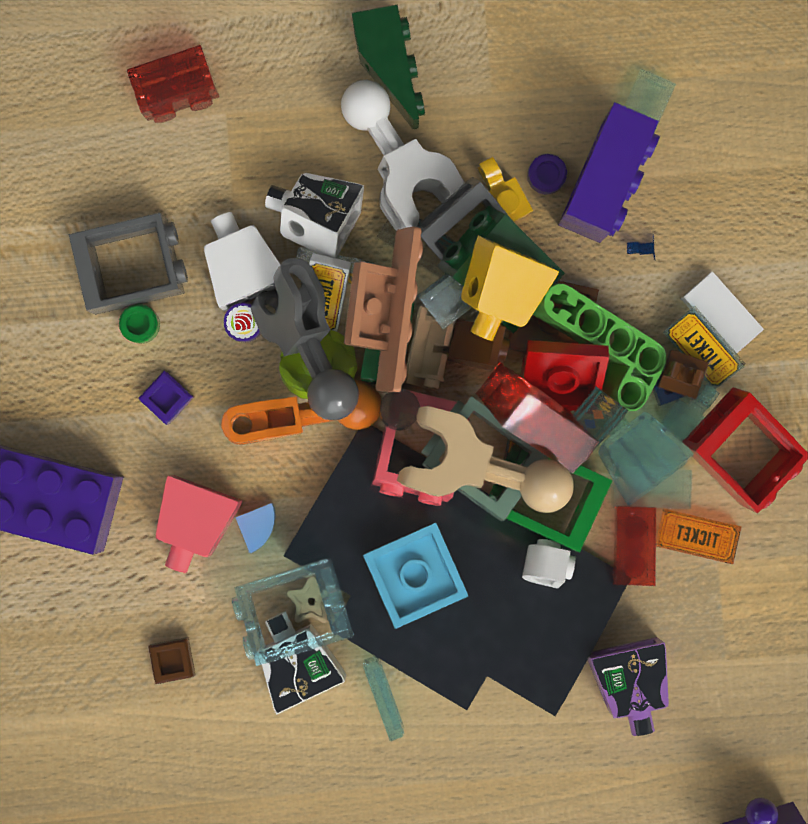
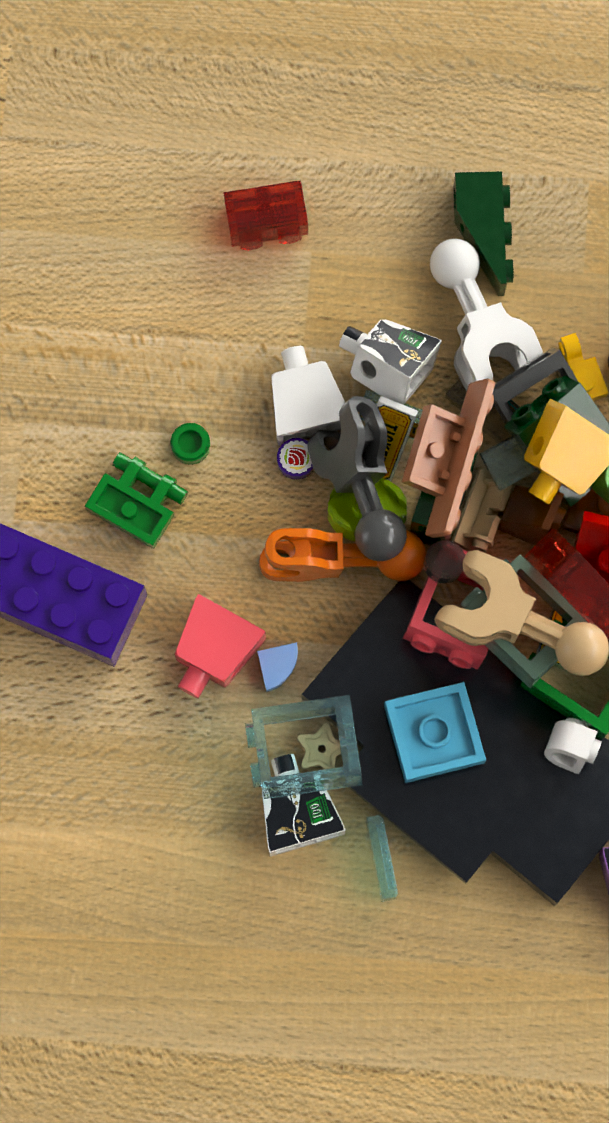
camera: 10 degrees right, 10 degrees down
(89, 270) = (190, 348): dark grey window -> none
(92, 400) = (129, 509): none -> green plate
(166, 397) = (205, 521): dark purple tile -> none
(171, 660) = (166, 788): reddish brown tile -> none

